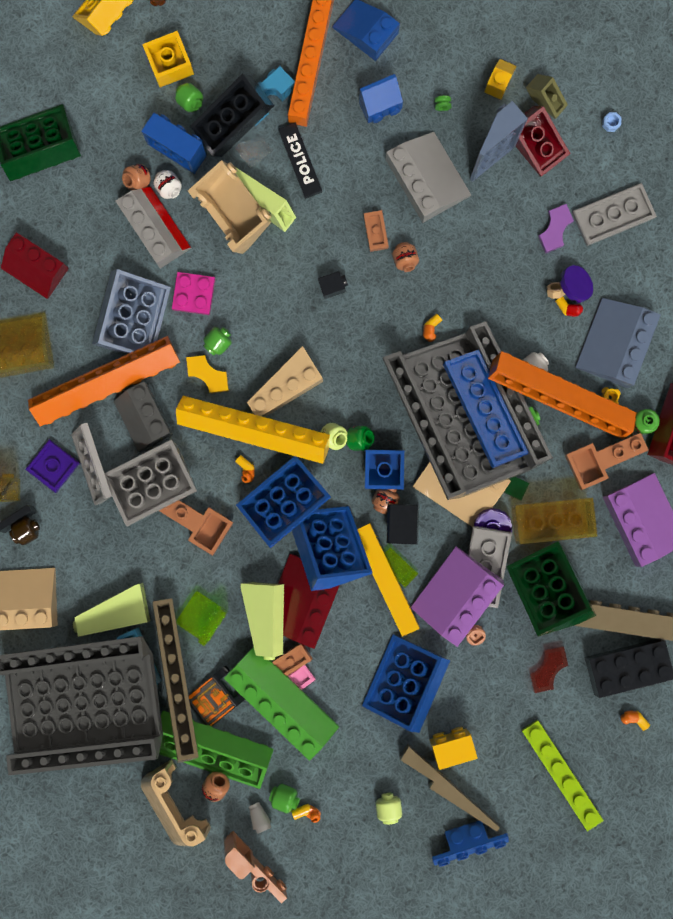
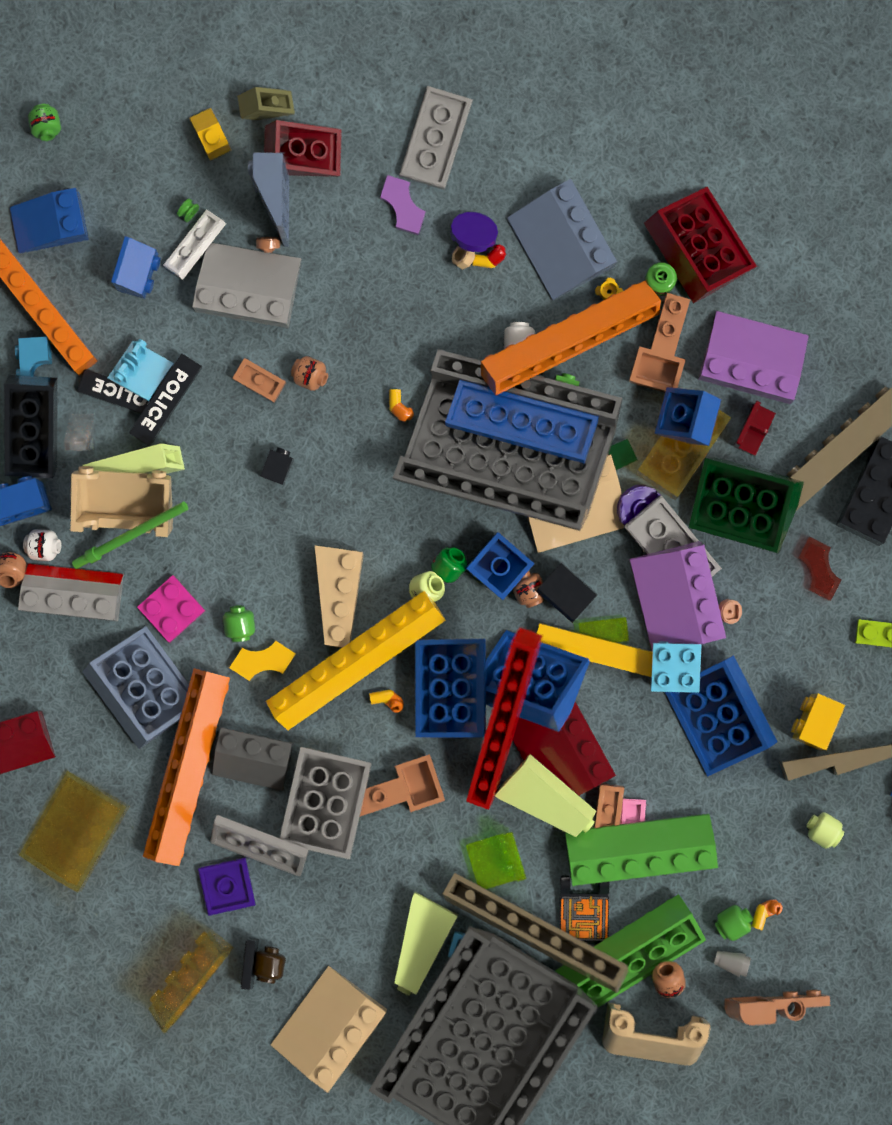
camera: 50 degrees left, 0 degrees up
(188, 220) = (96, 553): none -> bright green bar
(292, 549) = (504, 717): none -> red brick
(317, 184) = (165, 400): none -> black tile
(322, 155) = (140, 370): none -> medium azure hinge
(412, 630) = (675, 667): none -> medium azure hinge
(425, 124) = (194, 244): none -> white tile
(462, 167) = (267, 244): none -> nougat tile
(576, 508) = (688, 416): none -> blue slope
(601, 557) = (754, 429): none -> dark red panel
(611, 122) = (344, 63): light blue tile -> none

